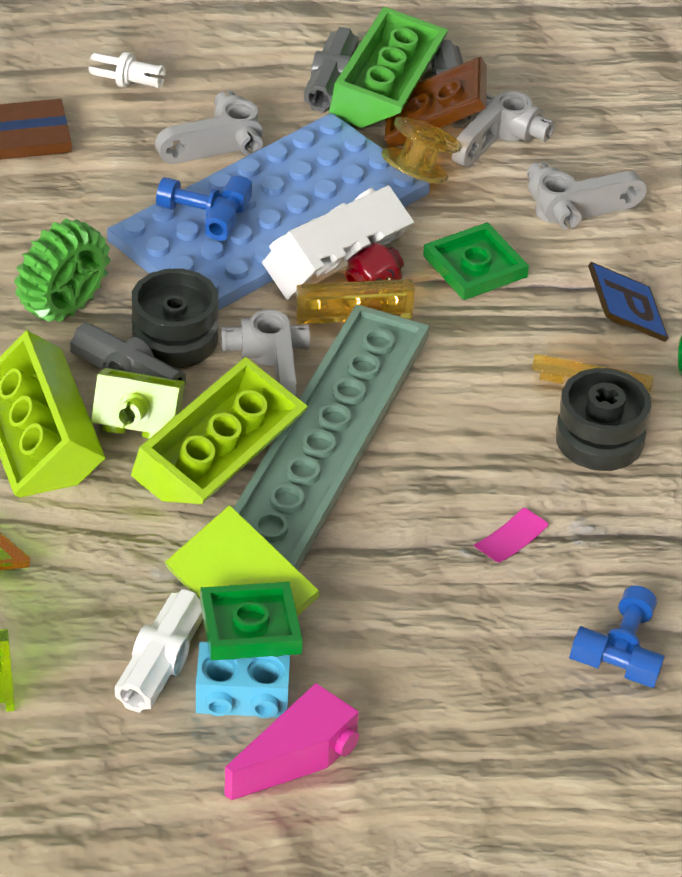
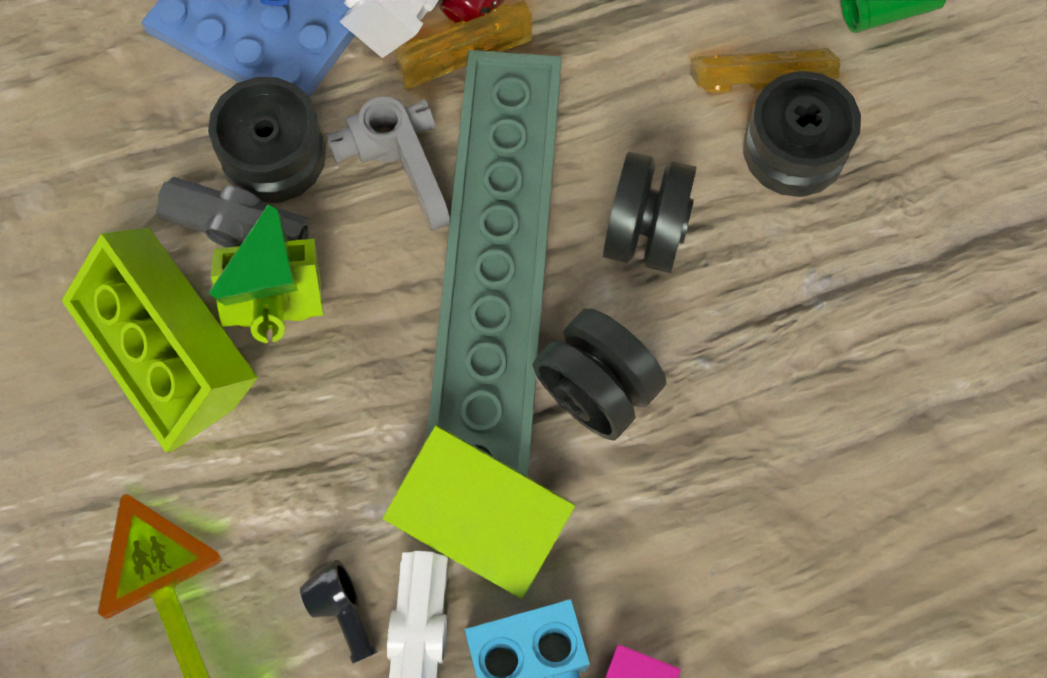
camera: 15 degrees left, 25 degrees up
(62, 270) = (111, 116): bright green gear -> none
(106, 608) = (331, 594): none -> black bar
(135, 370) = (260, 265): none -> green slope
(216, 435) = (382, 307): lime slope -> none
(250, 621) = (517, 589): green plate -> none
(372, 516) = (600, 373): none -> pearl dark grey wheel
(455, 430) = (650, 212): none -> pearl dark grey wheel
(512, 536) = (747, 323): dark pink sticker -> none
(621, 645) = (924, 454): blue bar -> none

